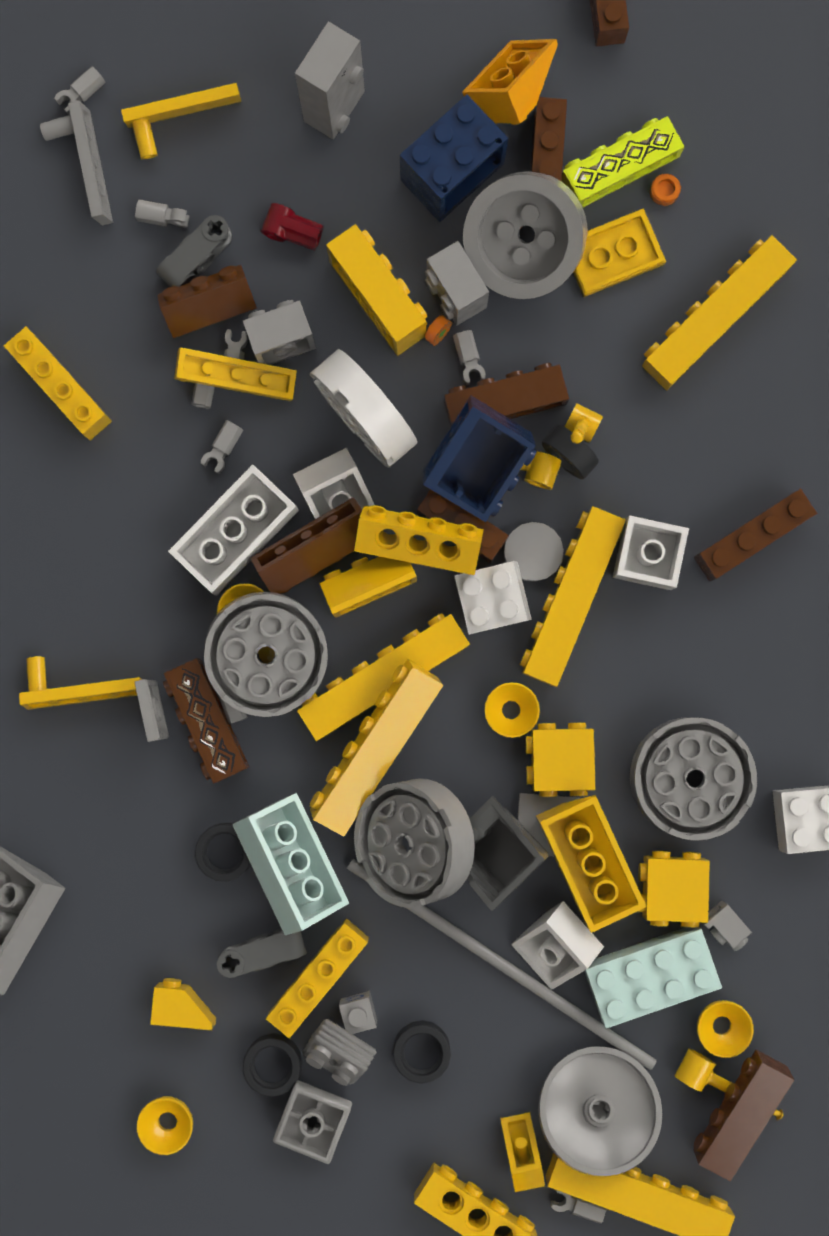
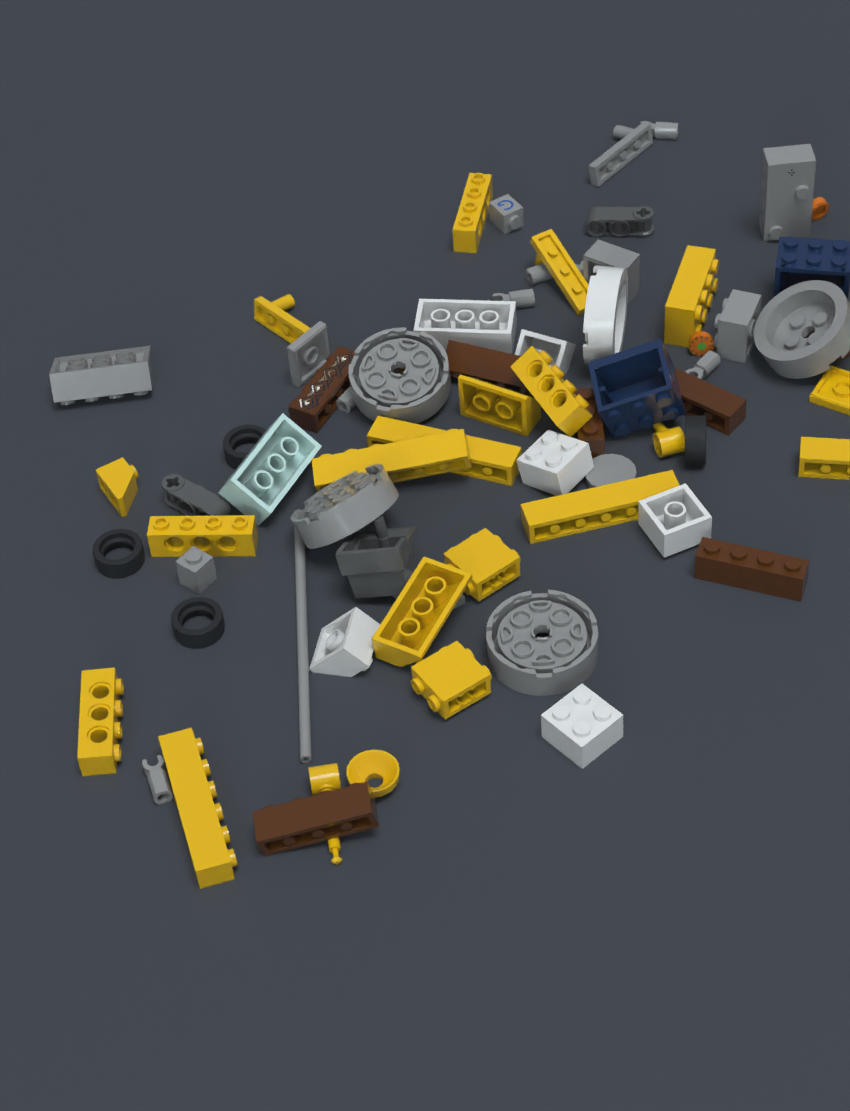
camera: 55 degrees right, 40 degrees down
(87, 351) = (506, 214): none -> light grey brick
(142, 115) = (697, 166): yellow piece -> none
(157, 1138) = (26, 517): yellow piece -> none
(160, 214) = (624, 195): light grey bar -> none
(206, 300) = (584, 232): reddish brown brick -> none
(284, 225) = (678, 242): dark red piece -> none
(322, 1138) = (95, 593): light grey brick -> none
(338, 1053) = (158, 568): light grey brick -> none
(522, 1152) = (168, 716): yellow slope -> none
(528, 710) = (487, 514): yellow piece -> none
(583, 424) = (721, 435): yellow piece -> none
(600, 1111) = (242, 735): light grey dish -> none
(652, 976) = (373, 708): light aqua brick -> none
(727, 926) = (452, 729): light grey brick -> none

